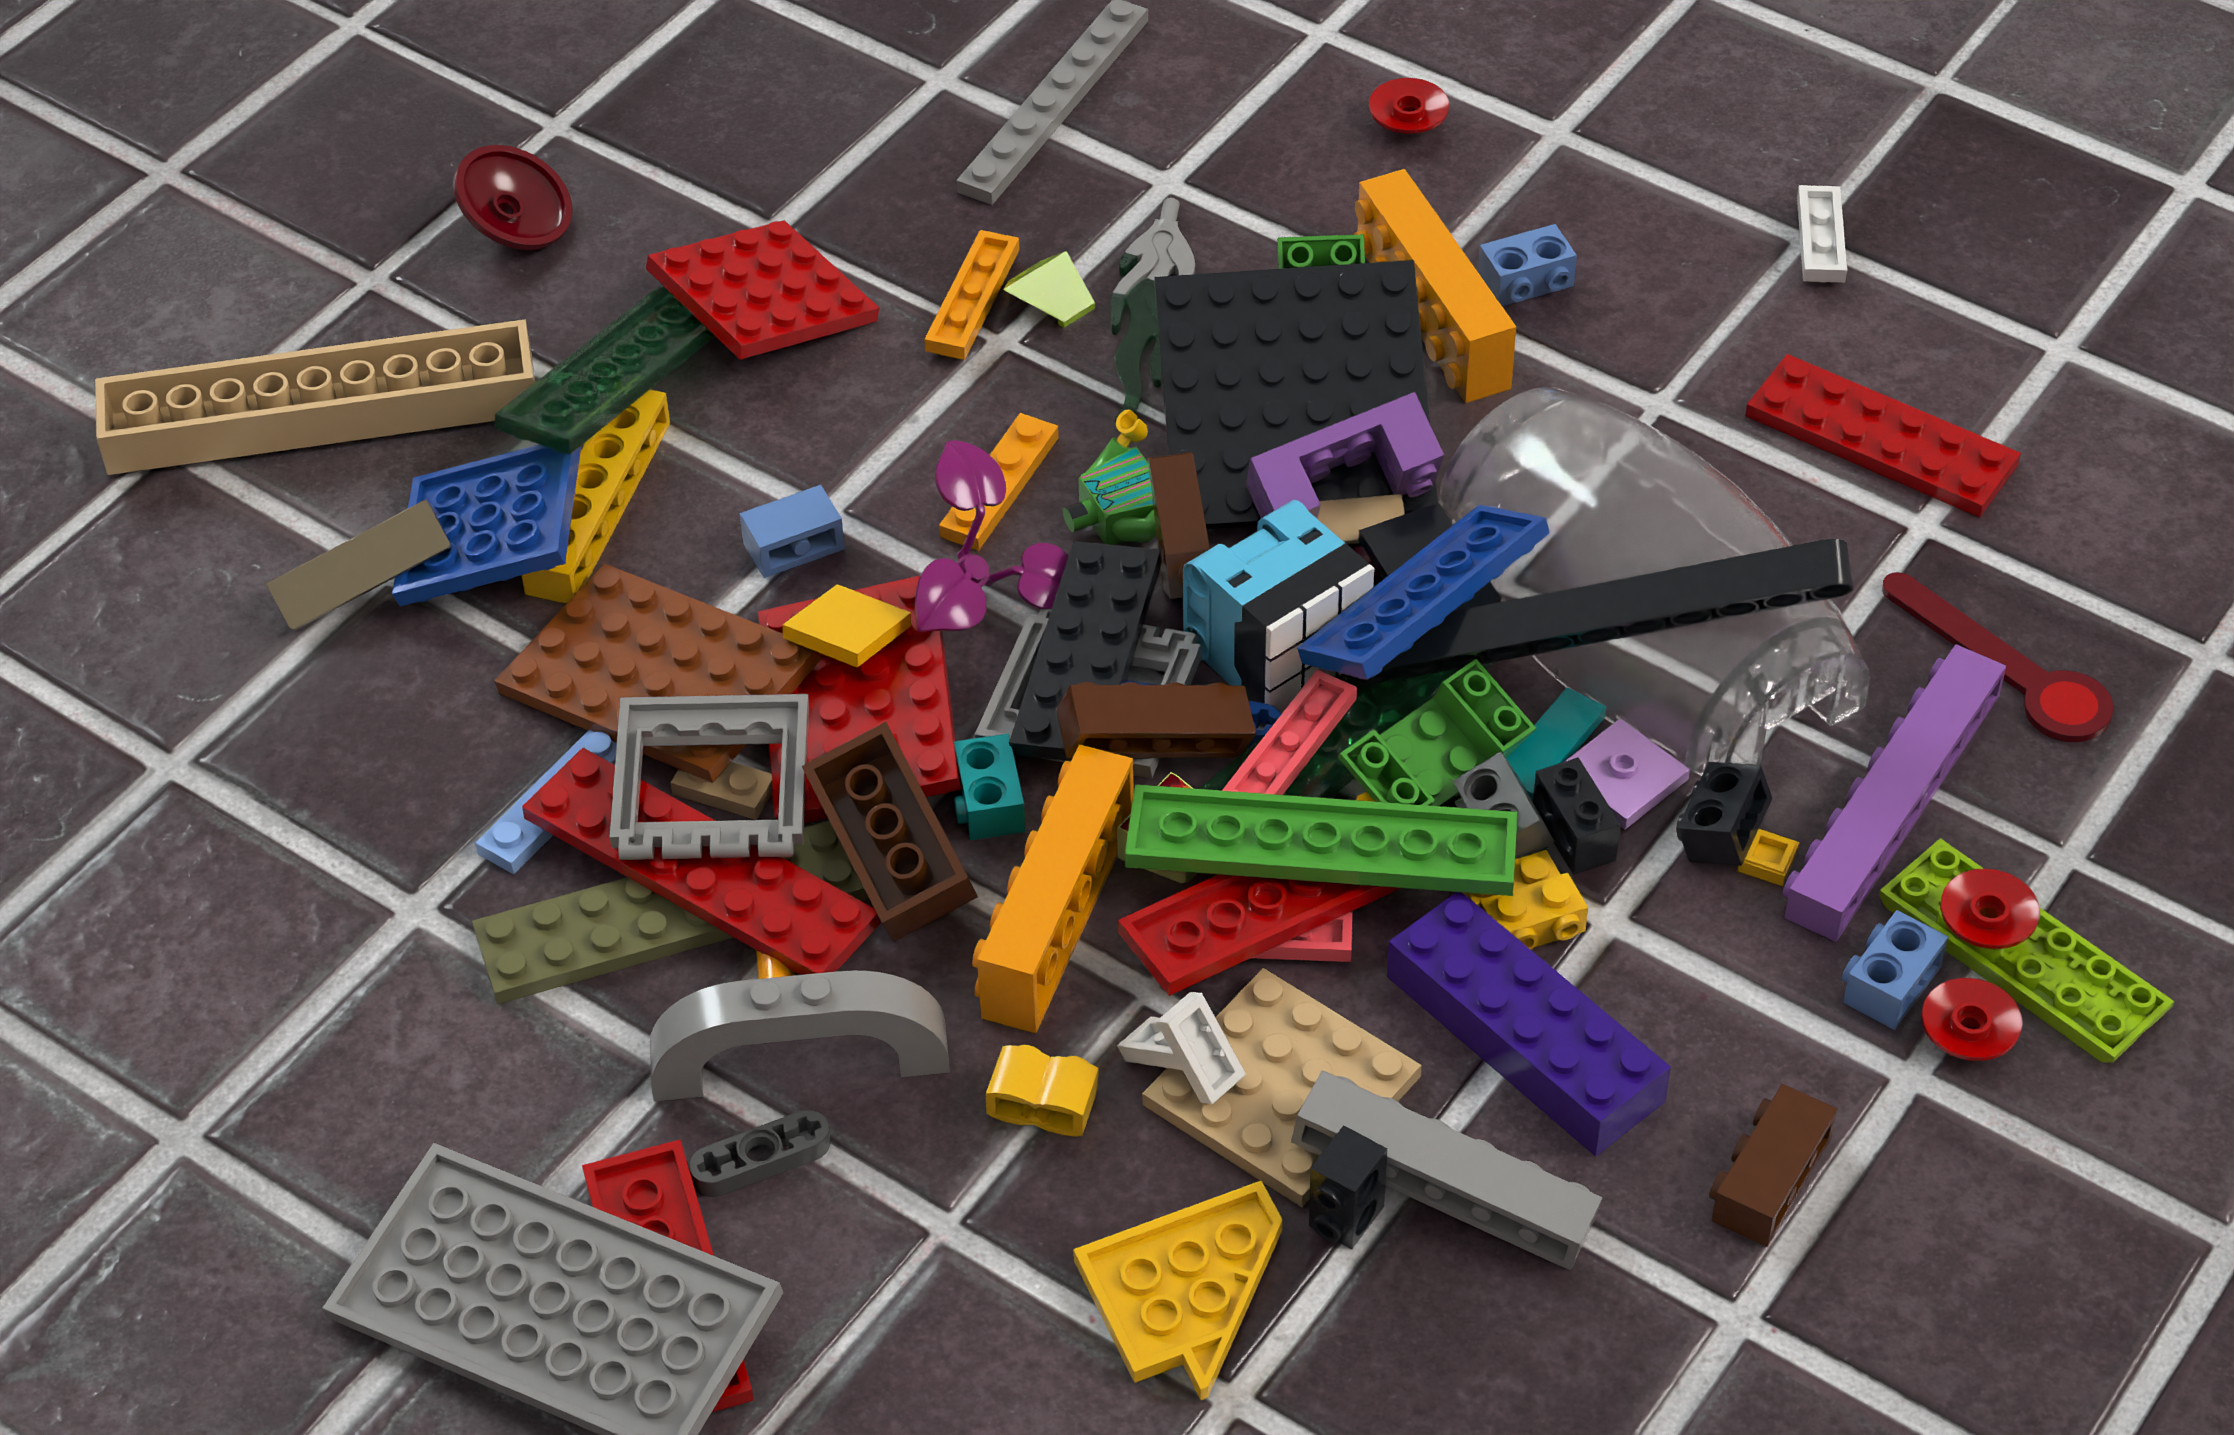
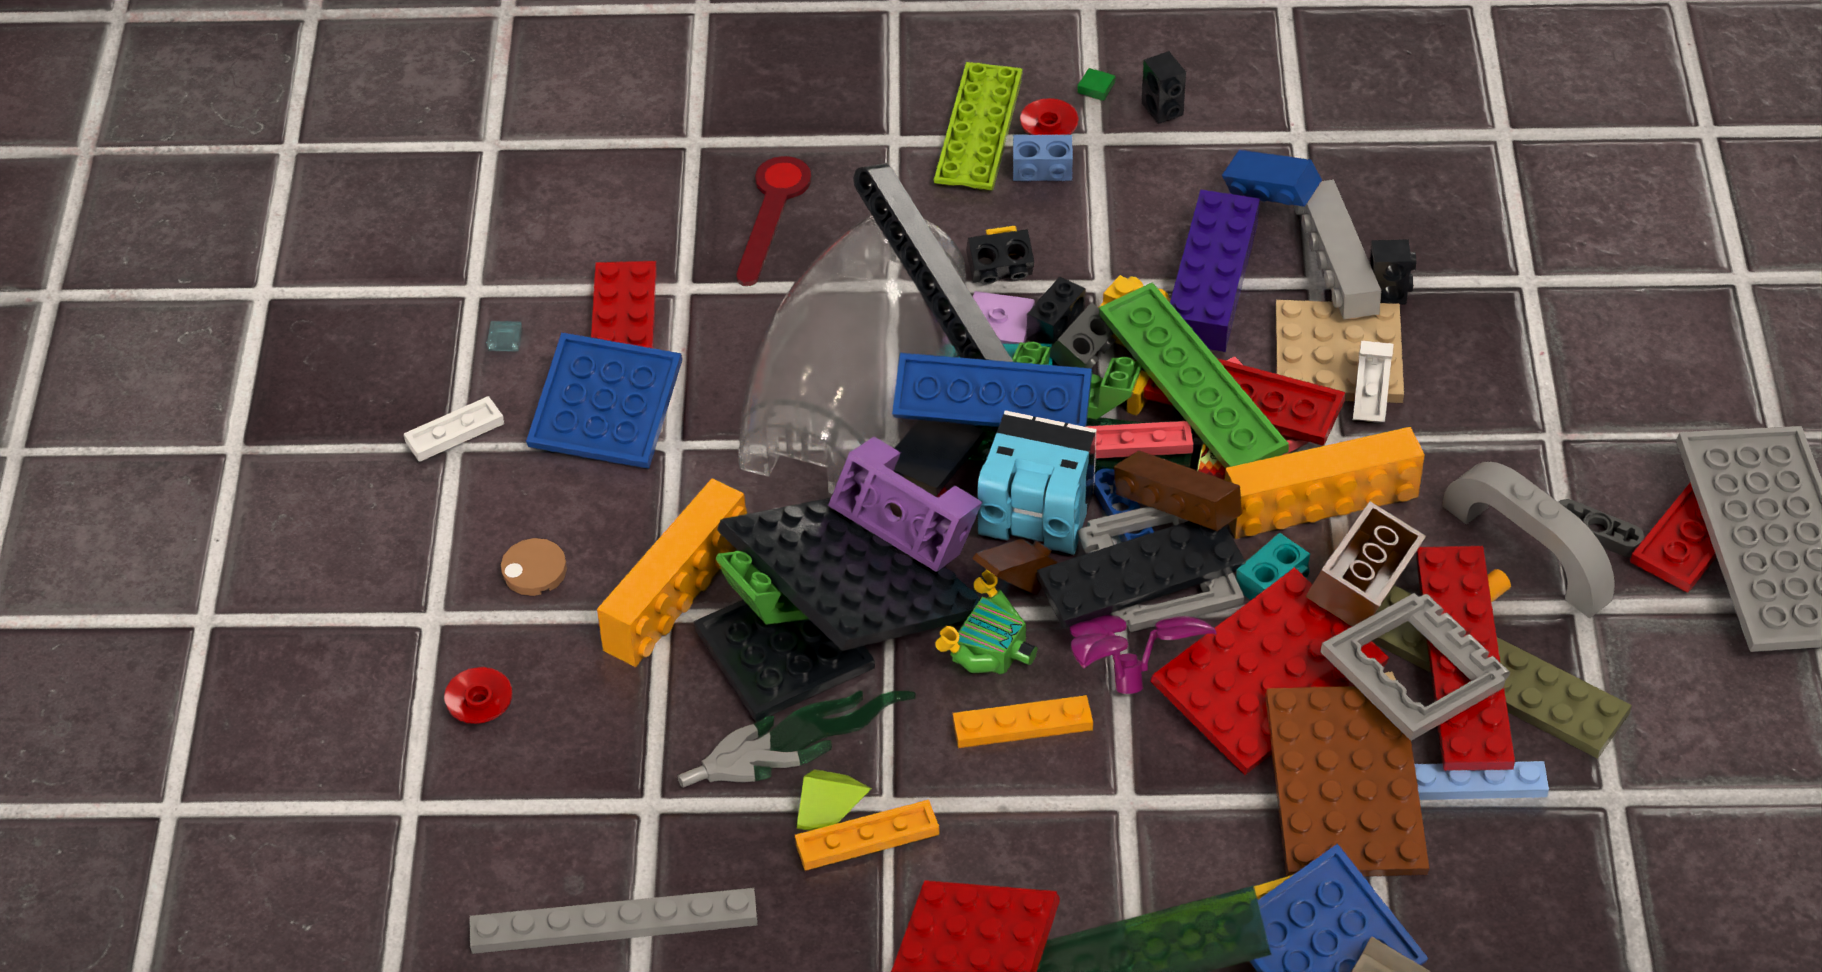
camera: 125 degrees left, 0 degrees up
(792, 531) = (1169, 791): medium blue brick -> none
(846, 625) = (1241, 676): yellow tile -> none
(1042, 1090) = (1444, 431): yellow brick -> none
(1183, 1282) = (1494, 321): yellow wing -> none
(1527, 265) = (602, 551): medium blue brick -> none
(1571, 210) = (533, 566): none -> medium nougat tile
(1634, 1165) = (1272, 177): none -> blue brick
(1754, 347) = (604, 400): none -> blue plate
(1772, 1164) = (1203, 148): reddish brown brick -> none
(1893, 793) = (939, 202): medium lavender brick -> none
(1926, 1162) = (1163, 87): none -> black brick
(1952, 335) = (504, 336): none -> clear light blue tile
(1993, 894) = (983, 124): red dish -> none
(2025, 1133) = (1096, 84): none -> green tile

